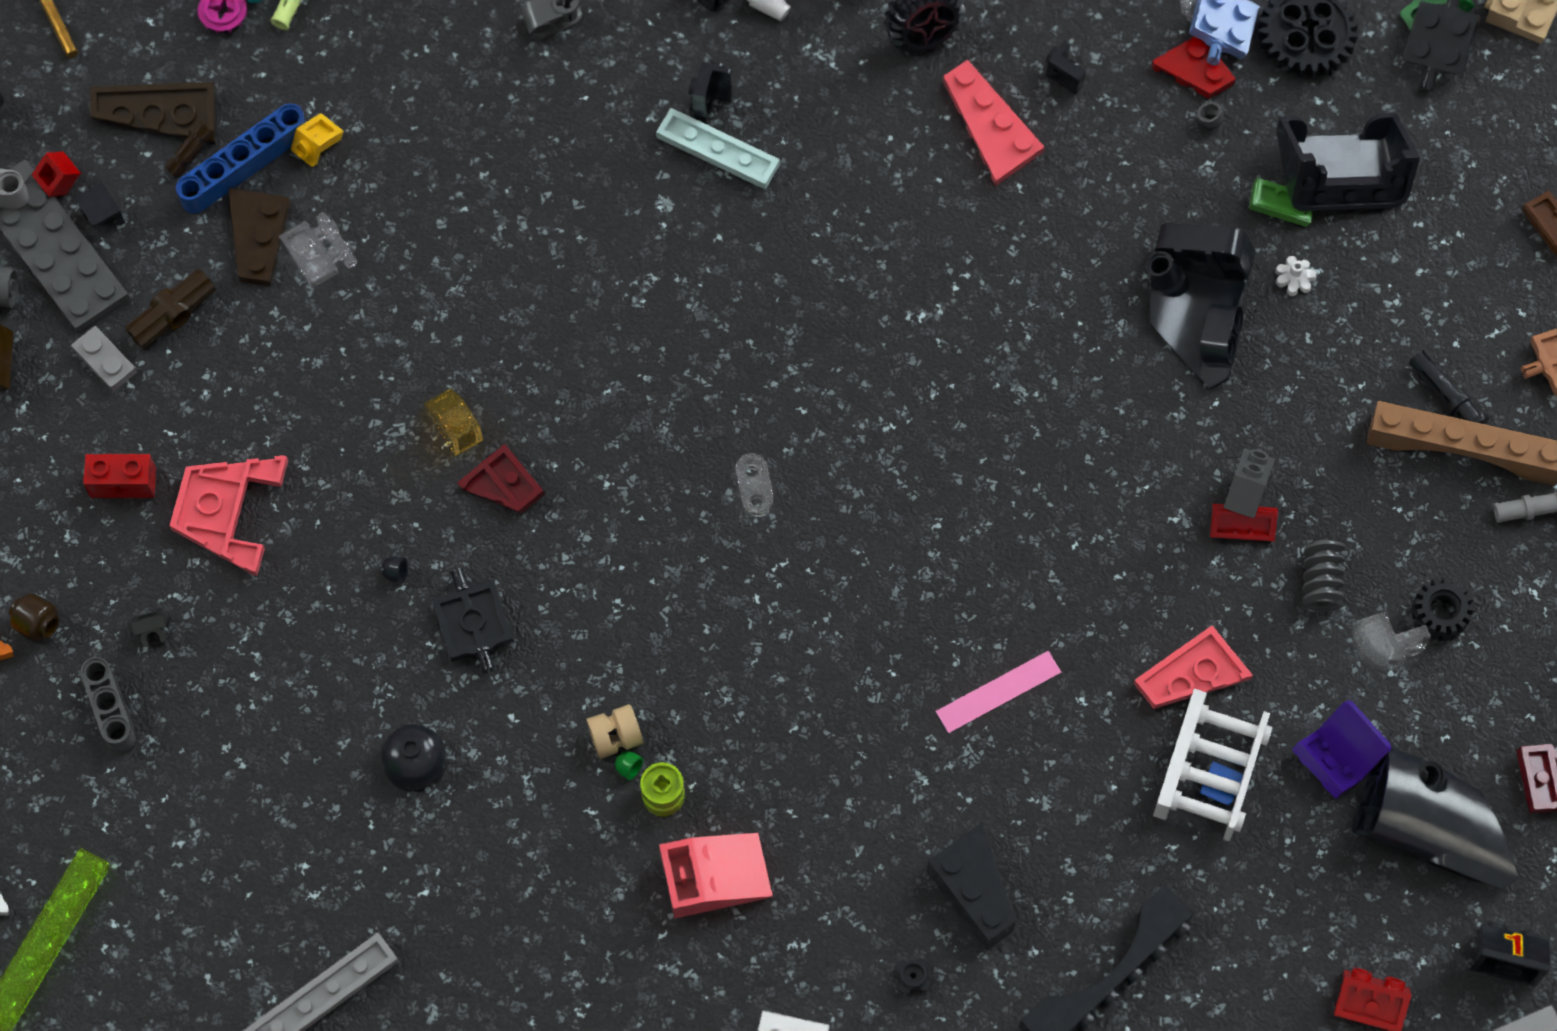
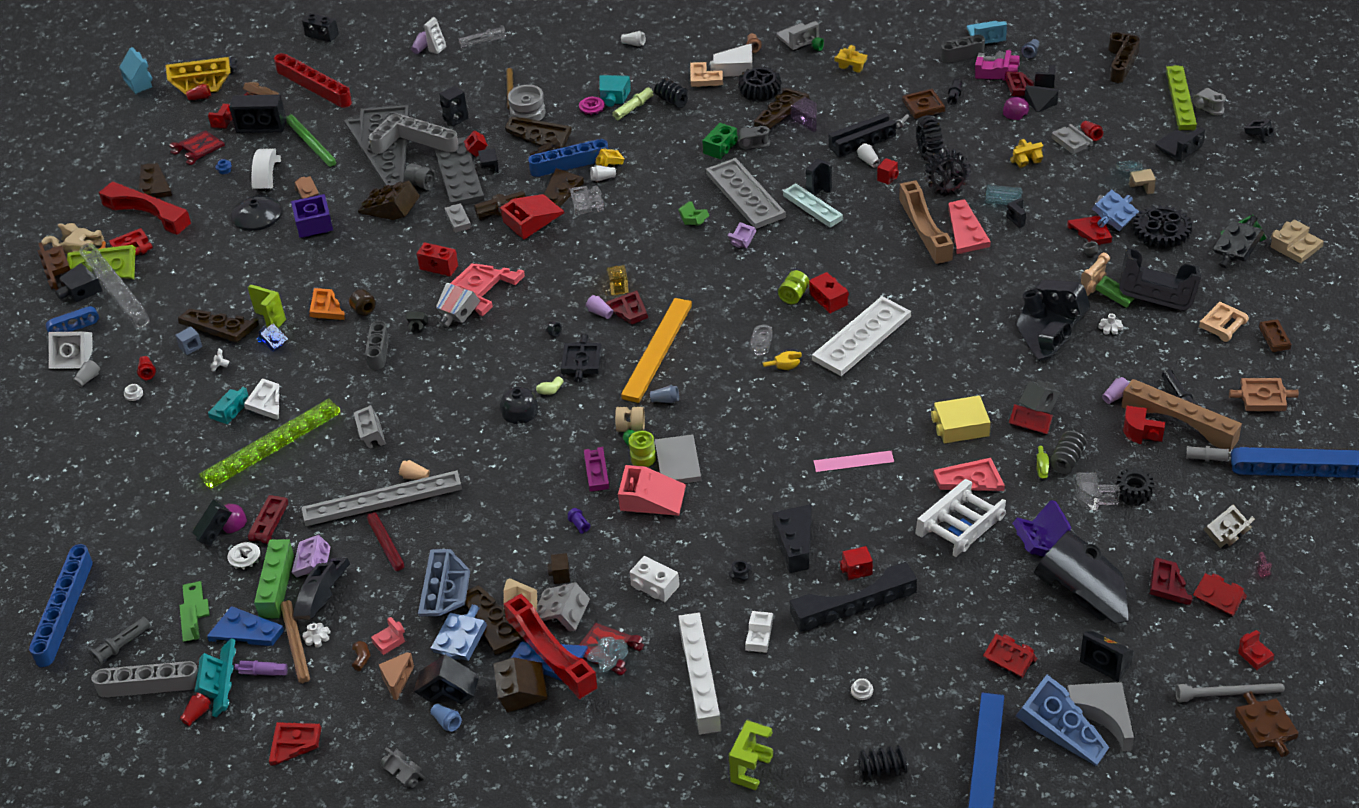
camera: 25 degrees right, 25 degrees down
(106, 49) = (527, 102): none -> light grey wheel
(184, 889) = (369, 426): none -> light grey hinge
(205, 574) = (456, 304): none -> light grey torso
(239, 319) = (529, 214): none -> red slope
(303, 955) = (413, 471): none -> light nougat cone
(315, 178) = (601, 173): none -> white cone
(447, 701) = (549, 388): none -> yellowish green arm
(452, 496) = (599, 307): none -> lavender cone
(490, 39) = (720, 140): none -> green brick
(522, 234) = (692, 216): none -> bright green bracket
(588, 558) = (656, 350): none -> light orange tile
(590, 152) = (745, 193): none -> light grey plate
(602, 849) = (596, 469): none -> magenta plate
(619, 963) = (575, 516): none -> dark purple pin
(627, 258) = (742, 235): none -> lavender bracket
(647, 656) = (666, 394): none -> sand blue cone
(723, 784) = (678, 458): none -> light grey tile
(764, 353) = (793, 287): none -> lime wheel
(805, 519) = (785, 361): none -> yellow hand
(816, 32) = (887, 171): none -> red plate
(829, 359) = (828, 292): none -> red brick
(913, 425) = (861, 336): none -> white plate
(955, 174) = (936, 241): none -> medium nougat arch
(1027, 28) = (1002, 194): none -> clear light blue panel
(1086, 904) = (856, 563): none -> red brick
(1137, 558) = (961, 419): none -> light yellow brick
(1243, 179) = (1095, 273): none -> light nougat plate
(1292, 609) = (1042, 463): none -> lime hand
(1352, 419) = (1115, 390): none -> lavender cone
(1407, 488) = (1139, 428): none -> red brick
(1457, 213) = (1218, 318): none -> light nougat plate

